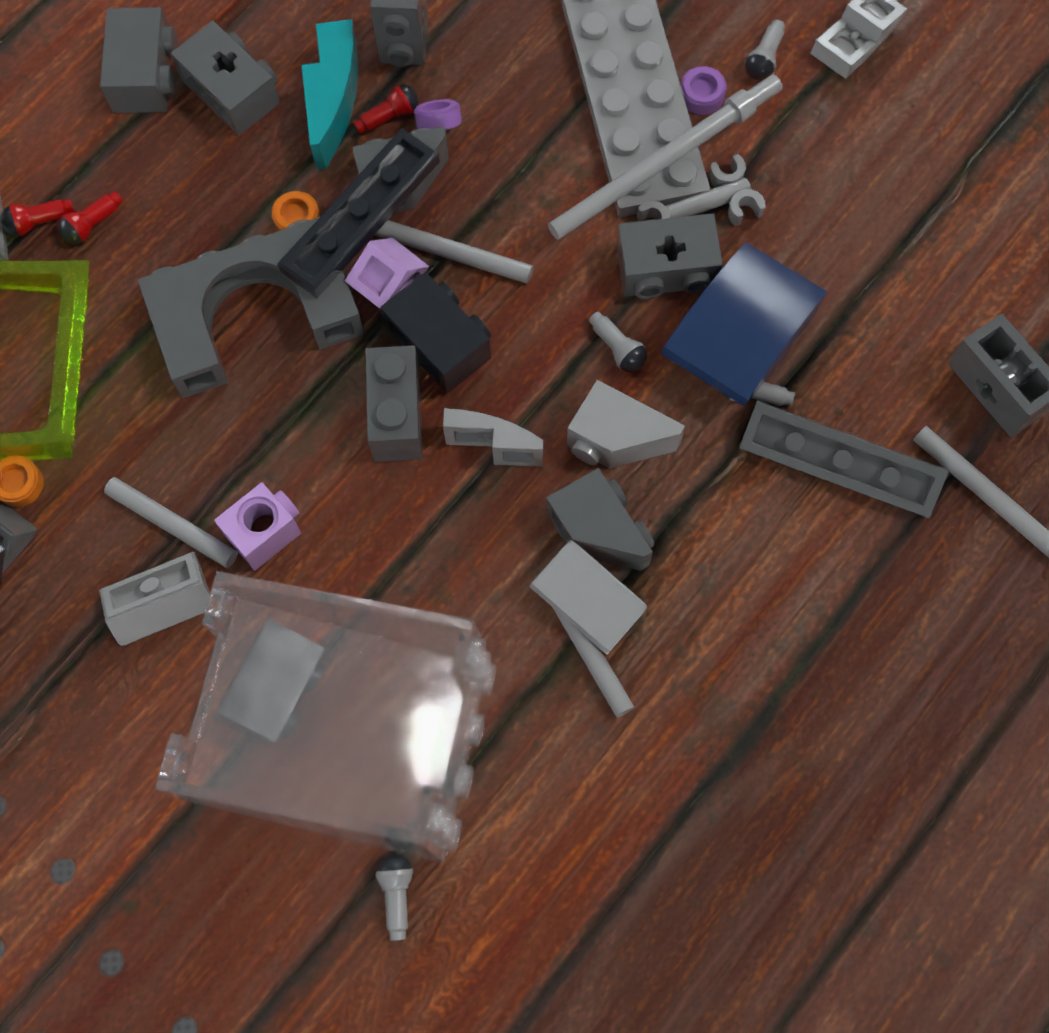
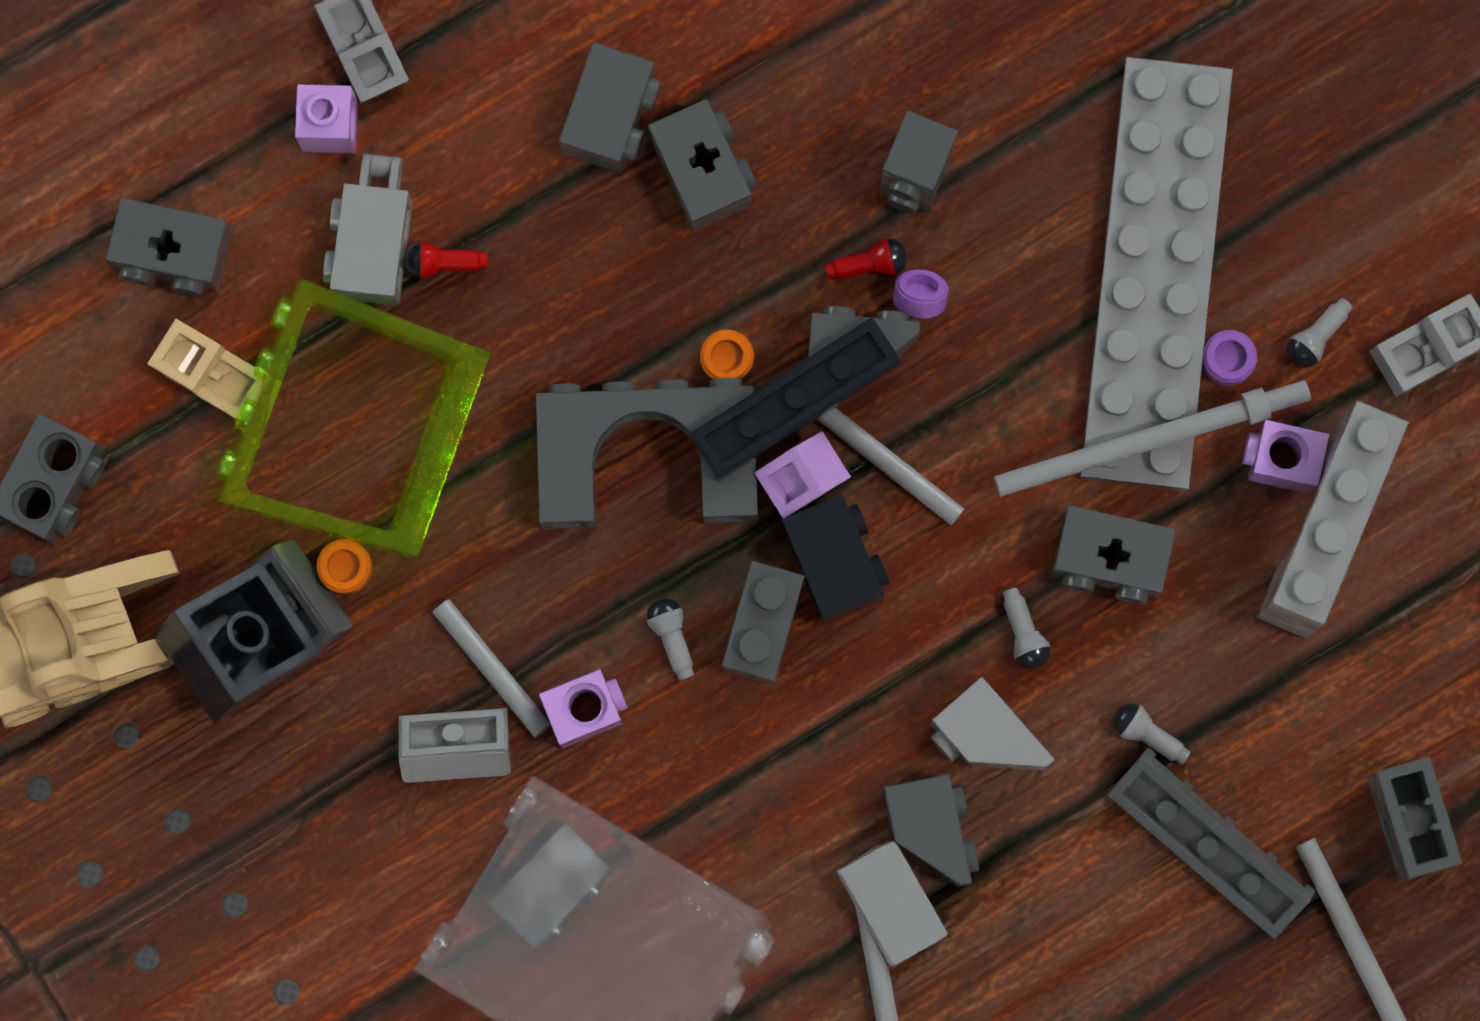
camera: 20 degrees right, 10 degrees up
(76, 226) = (486, 289): red piece -> none
(311, 432) = (666, 620): none -> light grey piece
(331, 88) = (812, 219): teal slope -> none
(509, 442) = (866, 706): light grey slope -> none
(728, 189) = (1216, 493): light grey bar -> none
(744, 323) = (1162, 663): dark blue slope -> none
(788, 125) = (1309, 451): none -> lavender brick
(844, 132) = (1319, 558): none -> light grey arch

